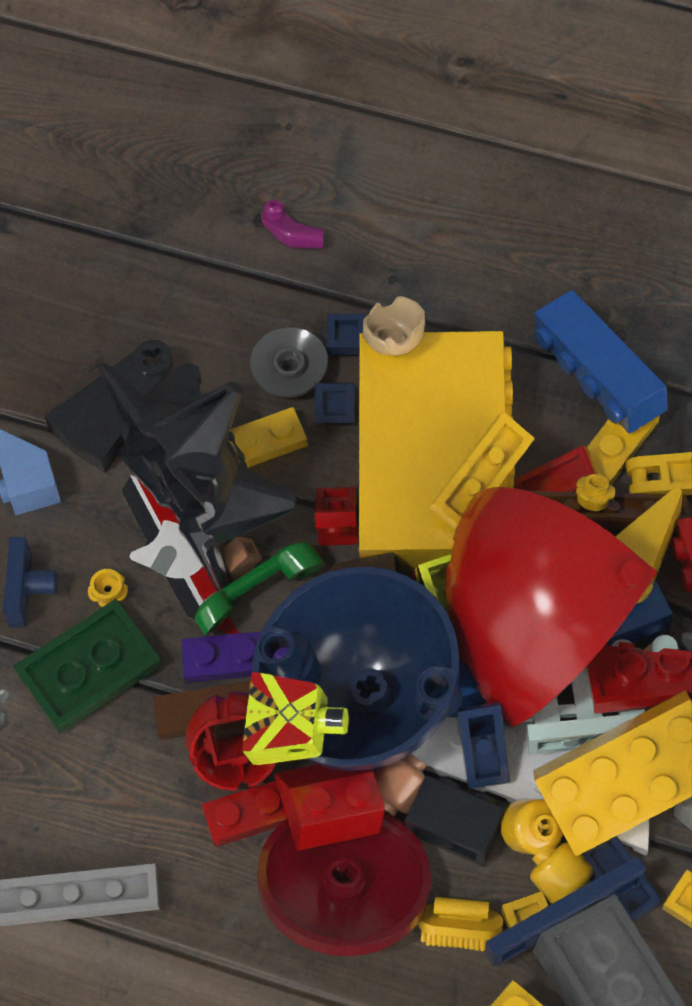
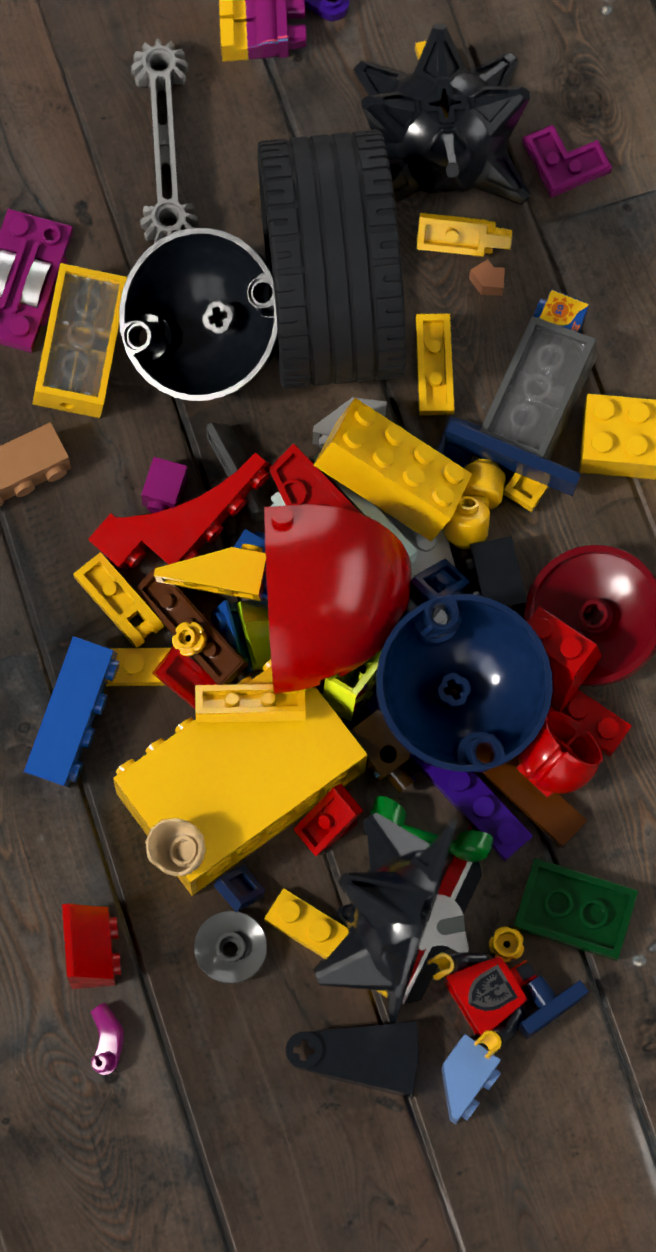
camera: 135 degrees left, 10 degrees up
(76, 534) = (486, 994): none -> torso
(288, 720) = (539, 693): torso -> none
(344, 333) = (173, 924): dark blue plate -> none
(377, 248) = (89, 946): none -> red slope
(459, 923) = (558, 527): yellow piece -> none

